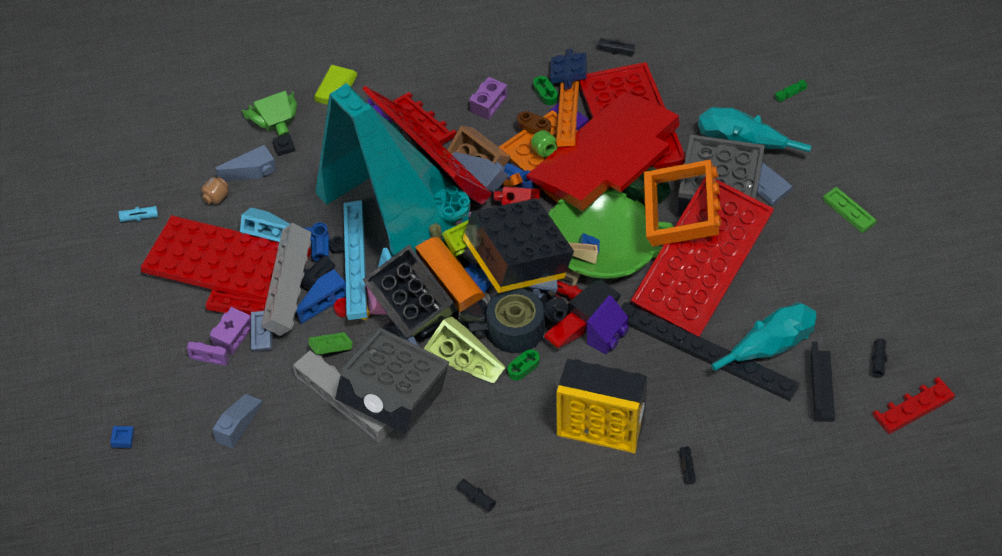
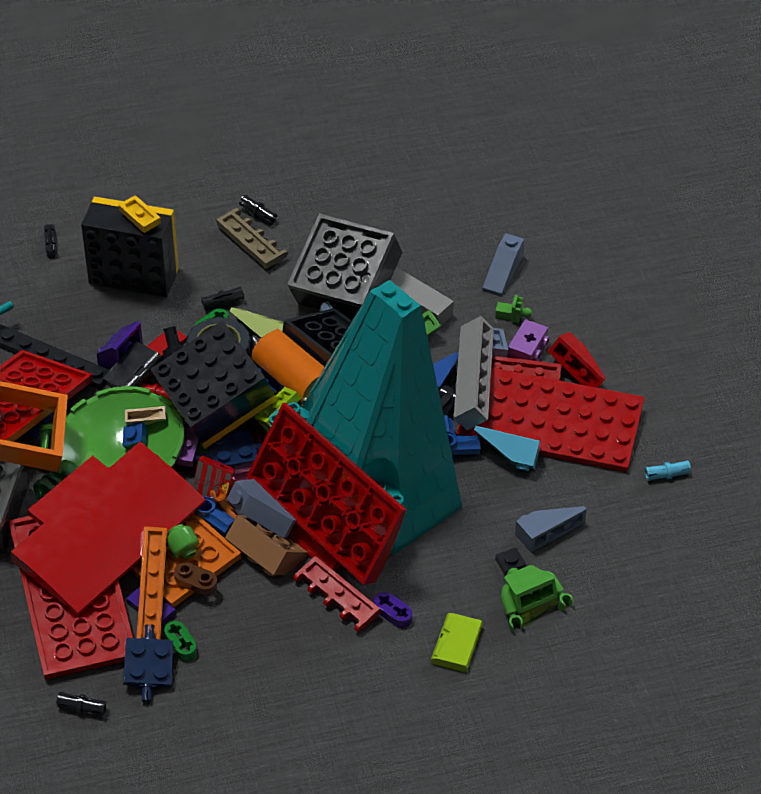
camera: 175 degrees right, 5 degrees down
(122, 436) = (616, 249): blue plate -> none
(191, 311) = (577, 360): none -> red slope
(207, 353) = (556, 322): medium lavender plate -> none
(214, 190) = (581, 492): medium nougat head -> none
(237, 370) = (512, 311): none -> bright green piece
(486, 458) = (249, 239): none -> dark tan hinge
(488, 98) = (252, 619): medium lavender brick -> none
(513, 390) = (222, 298): none -> black pin
(589, 375) = (139, 214): none -> yellow plate

